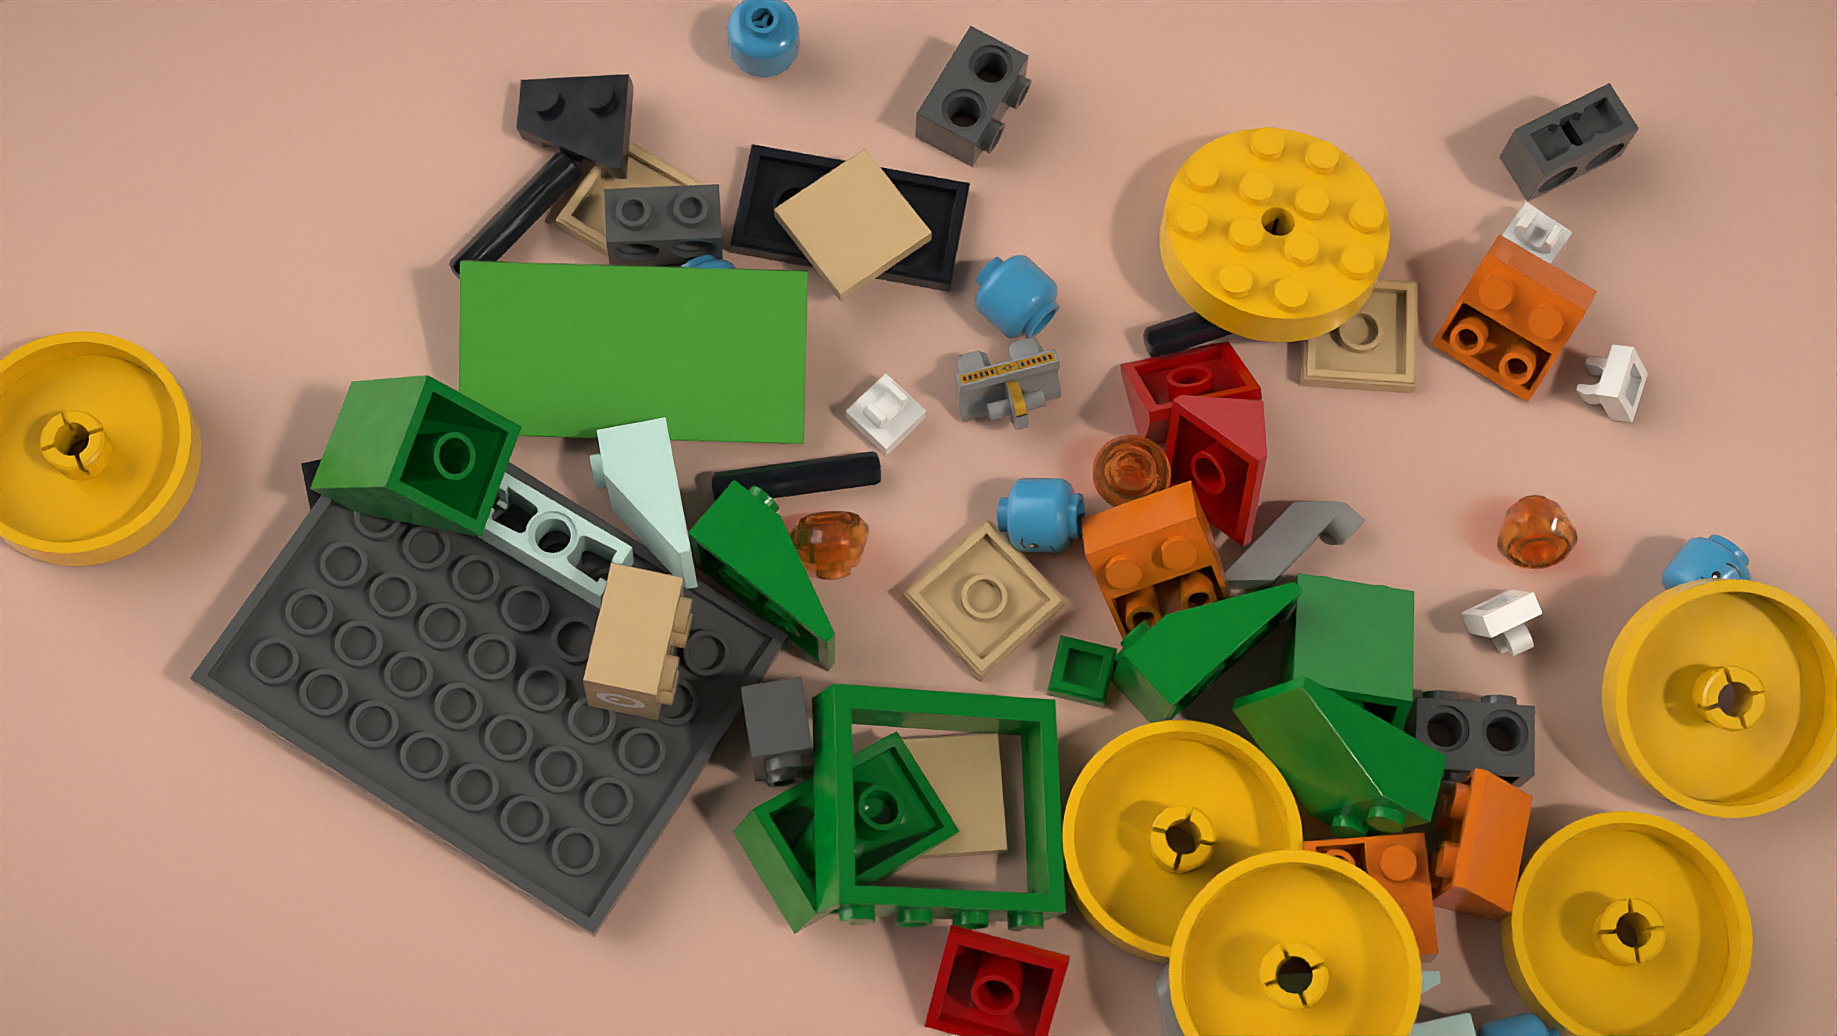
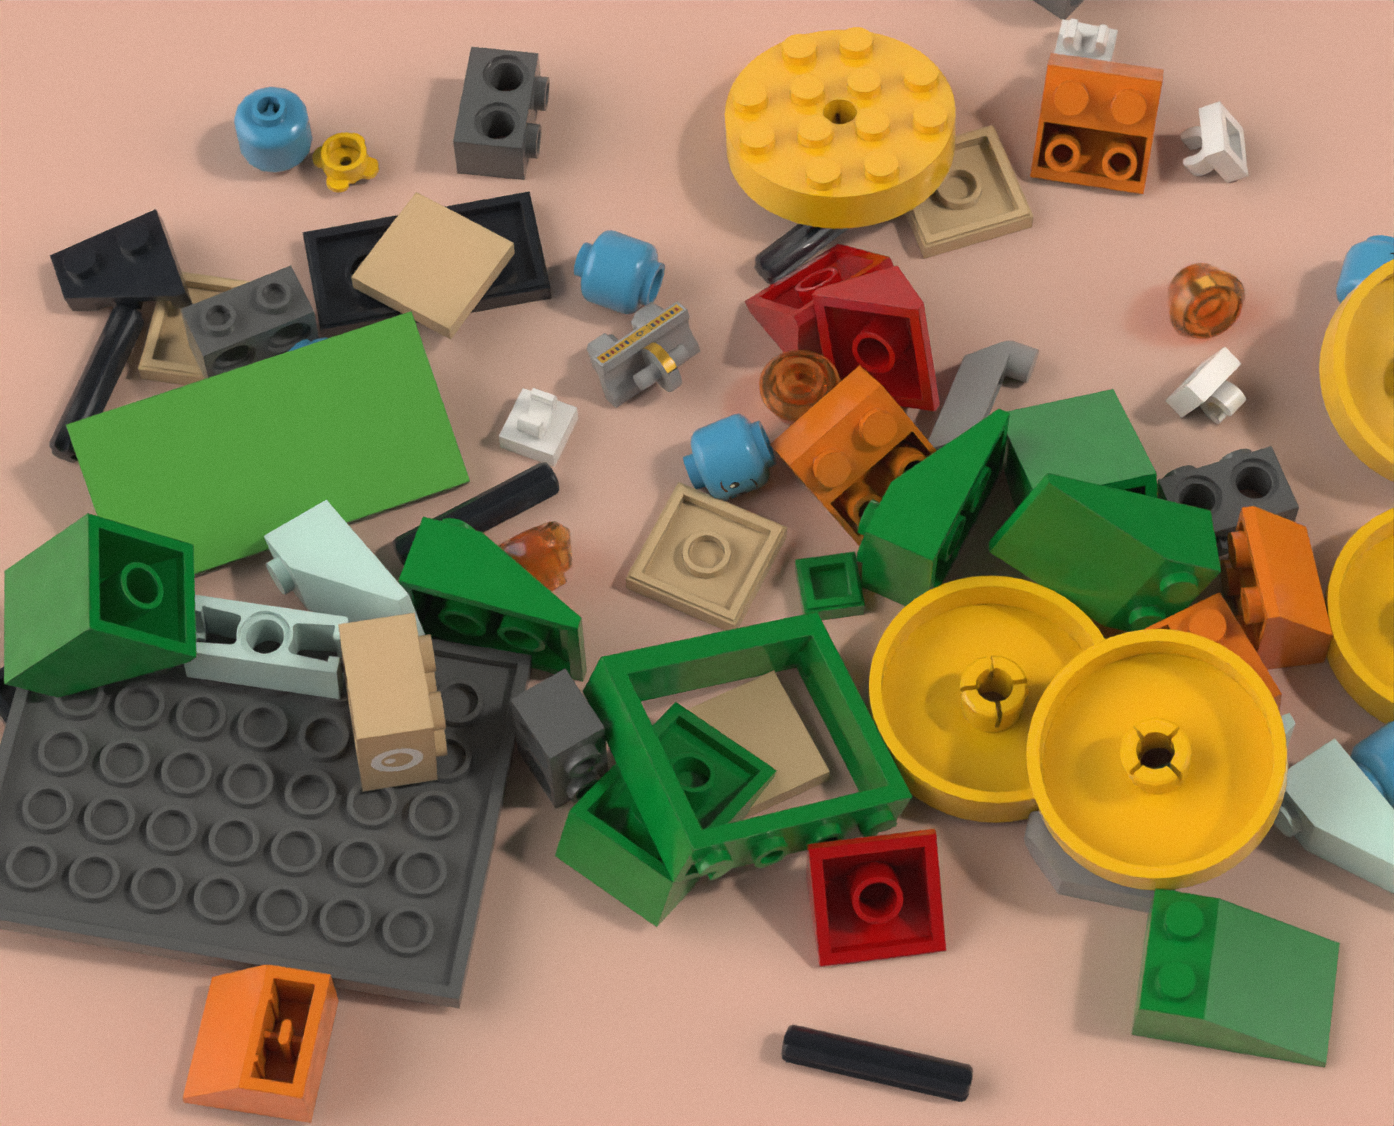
camera: 15 degrees left, 10 degrees down
(410, 903) = (263, 1042): none -> orange slope
(818, 74) = (343, 148): none -> yellow plate

